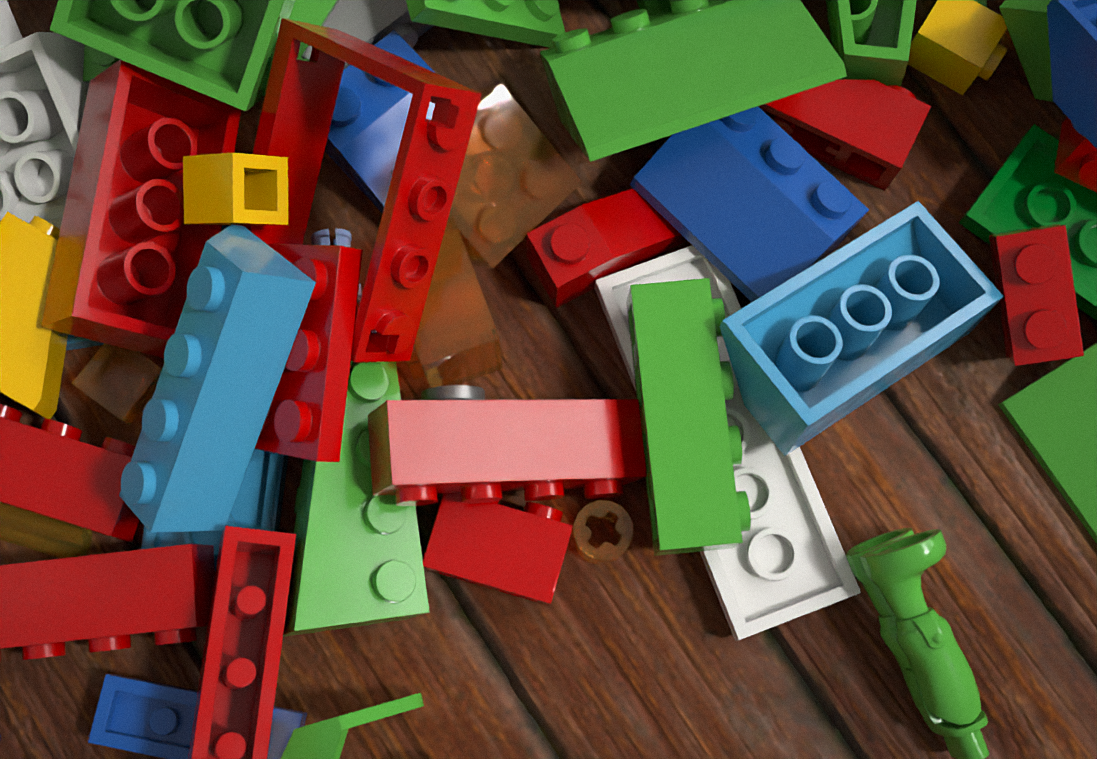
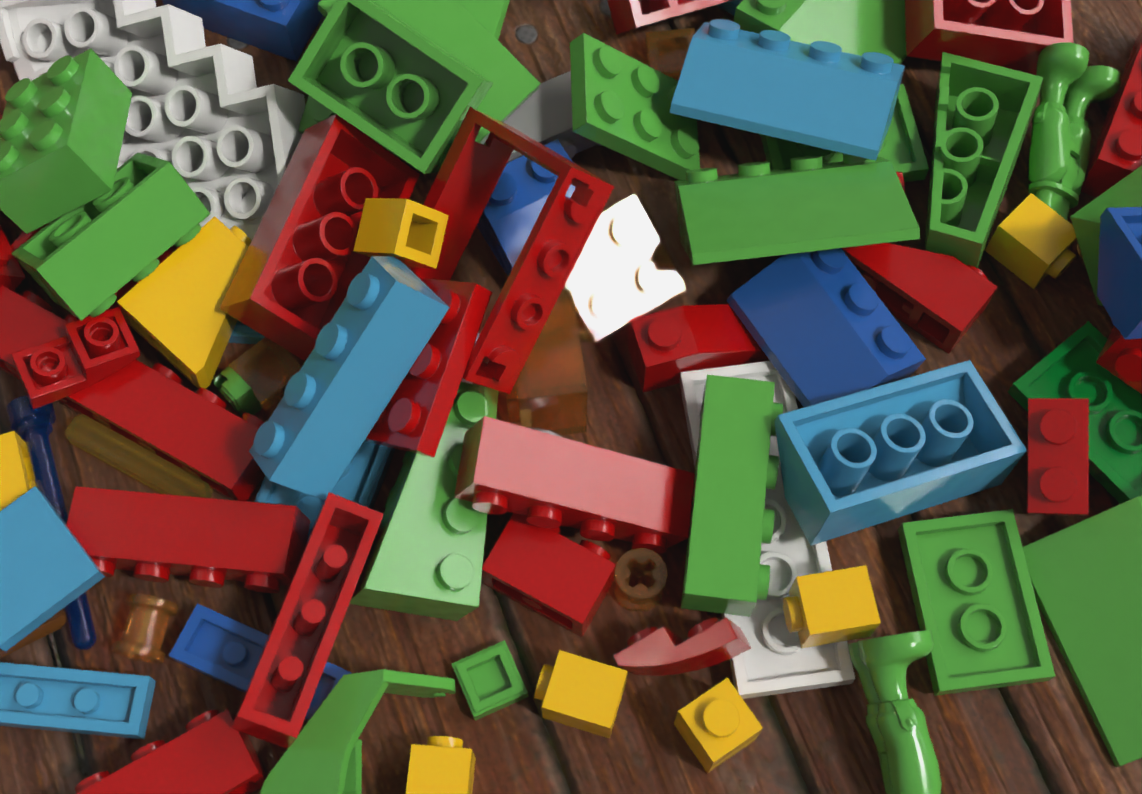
camera: 15 degrees right, 10 degrees down
(53, 716) = (145, 628): none -> clear orange bush
(89, 413) = (236, 392): none -> bright green tile
(458, 681) = (490, 680): none -> bright green tile
(565, 677) = (581, 693): none -> yellow brick
(651, 610) = (664, 653): none -> slope
(724, 680) = (717, 725): none -> yellow brick
(823, 523) = (831, 607): none -> yellow brick
(971, 472) = (977, 602): none -> bright green plate

